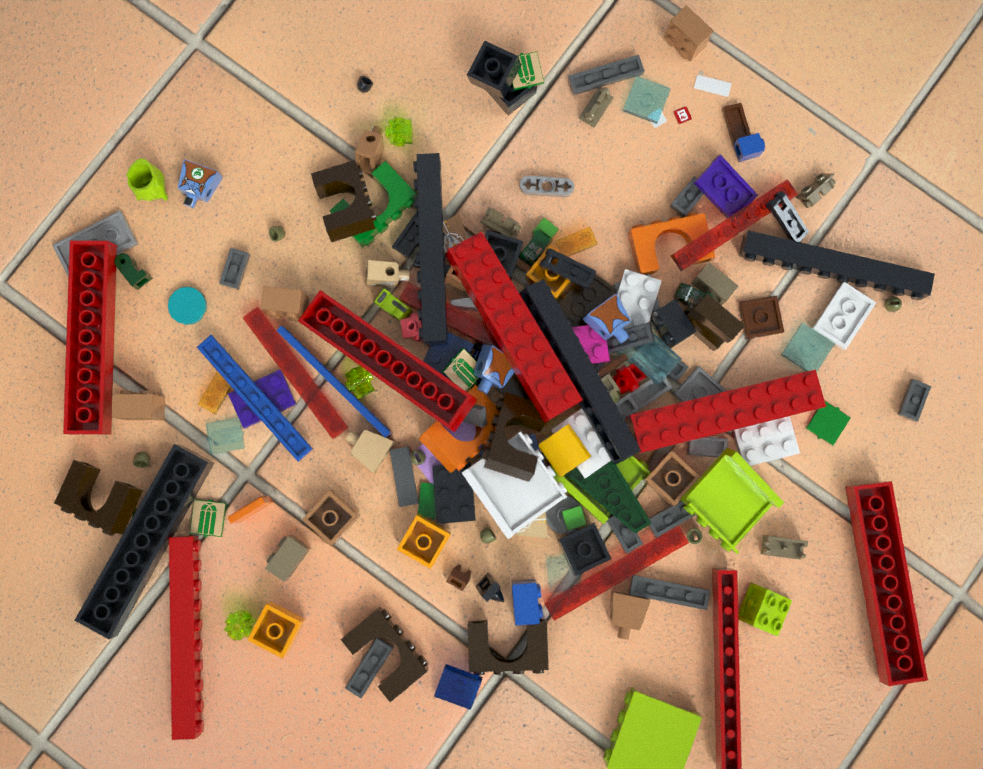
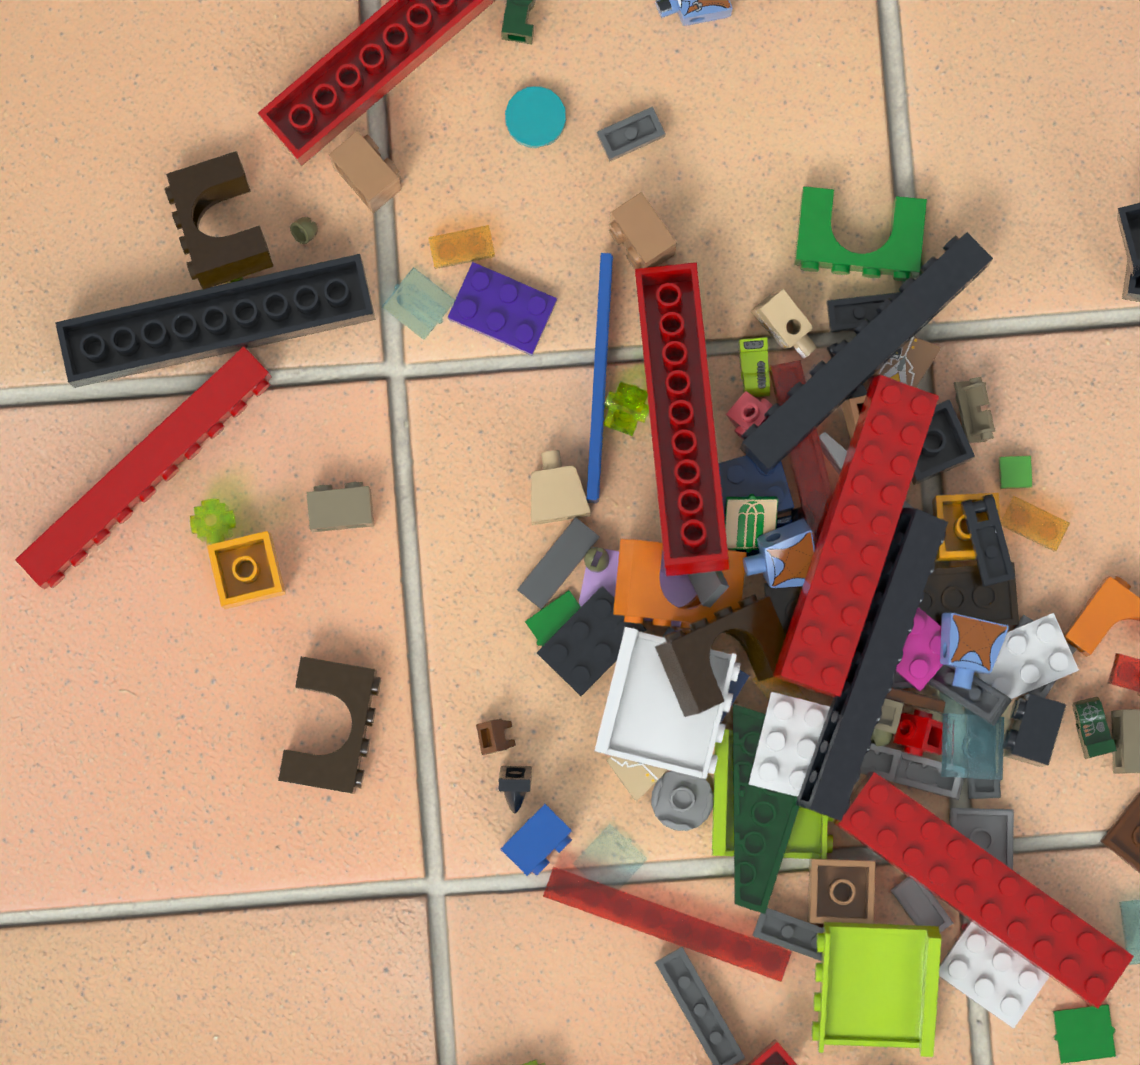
camera: 55 degrees right, 0 degrees up
(208, 518) = (303, 371): piece -> none
(250, 509) = (360, 413): orange tile -> none
(255, 398) = (496, 299): blue tile -> none
(276, 233) = (725, 145): olive hinge -> none
(295, 373) = (569, 321): clear red plate -> none
(331, 517) = (434, 518): medium nougat brick -> none
(356, 217) = (826, 229): dark brown arch -> none
(364, 84) = (1001, 86): black hinge -> none
(369, 667) = (295, 721): dark grey tile -> none
(370, 149) = (923, 168): medium nougat torso -> none
(399, 131) = (977, 194): clear neon green brick -> none
(424, 540) = (503, 654): light orange brick -> none
(458, 686) = (365, 847): clear blue tile -> none
(484, 660) = (423, 850): dark brown arch -> none
(487, 535) = (575, 727): olive hinge -> none
(535, 247) = (983, 478): dark green leg -> none
(540, 192) = (1080, 448): light grey beam -> none
(564, 450) = (760, 729): yellow tile -> none
(574, 518) = (688, 813): bright green tile -> none
(584, 549) = (661, 858): black brick -> none
(626, 538) = (720, 899): dark grey plate -> none
(627, 612) = (630, 978): medium nougat torso -> none
(690, 537) = (790, 979): olive hinge -> none
(712, 322) = (1075, 772): dark brown arch -> none

